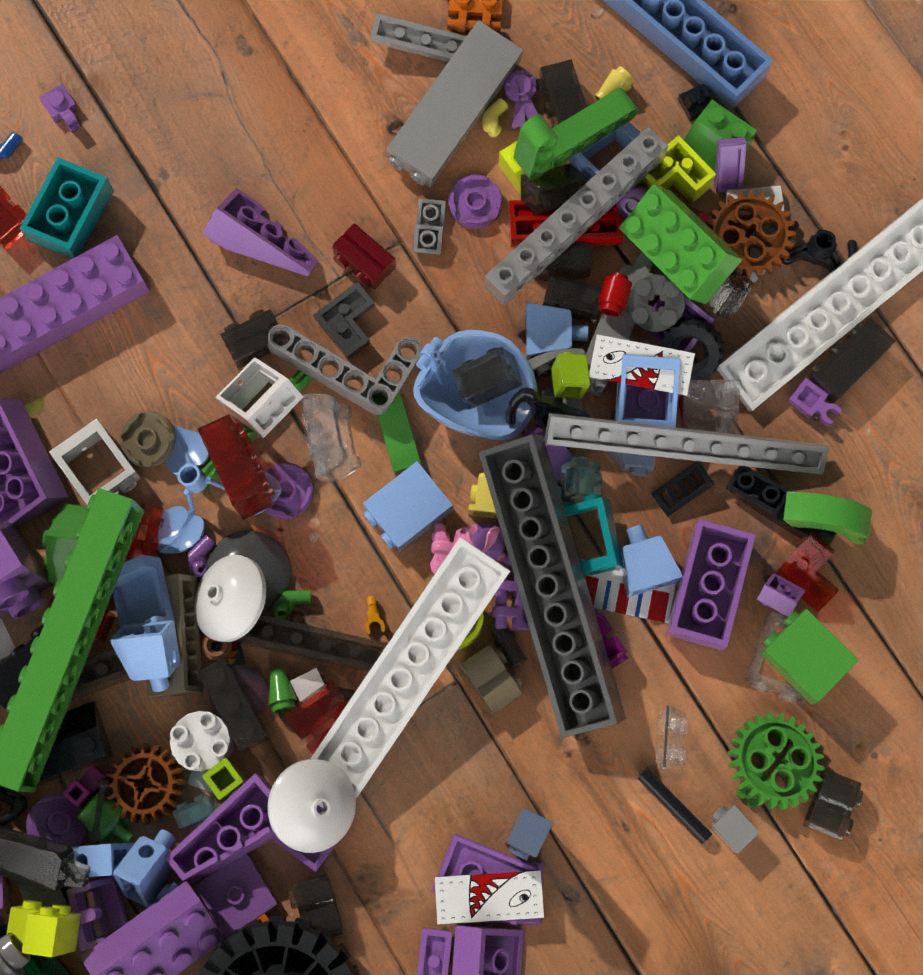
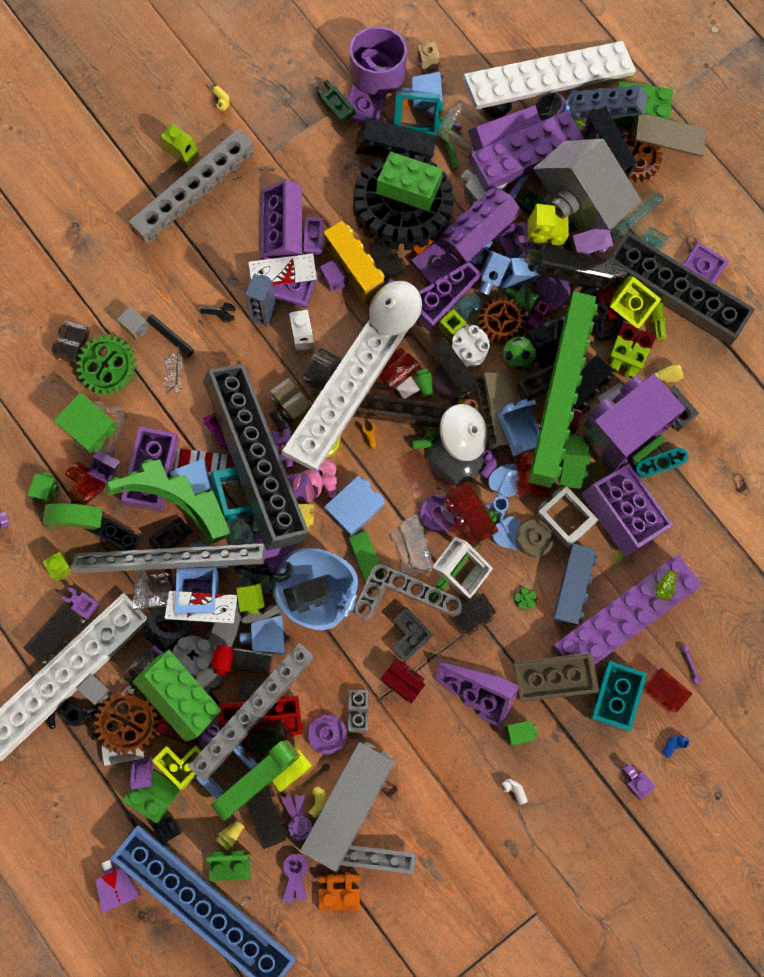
camera: 170 degrees right, 0 degrees up
(101, 364) = (574, 585): none -> sand blue brick
(125, 722) = (519, 353): none -> bright green piece
(148, 238) = (556, 677): none -> dark tan tile
(148, 652) = (510, 390): light blue torso -> none
(174, 358) = (525, 598): none -> bright green plant
(209, 177) = (521, 732): none -> bright green brick
(224, 109) = (516, 788): none -> white arm
(371, 901) = (353, 261): none -> yellow brick
(406, 884) = (333, 275): none -> medium lavender brick
(438, 719) = (321, 369): none -> clear smoke brick
(466, 795) = (301, 329): none -> white torso
(481, 161) = (325, 767): none -> clear smoke hinge
(530, 38) = (295, 868): none -> medium lavender piece
(595, 841) = (220, 311): none -> black bar
(617, 50) = (229, 867): none -> bright green bracket
(635, 513) = (200, 507): none -> bright green arch
(769, 32) = (115, 887): none -> medium lavender torso
(793, 280) = (94, 690): none -> light grey brick
(847, 454) = (58, 566): none -> lime brick
(871, 573) = (43, 488): none -> bright green brick

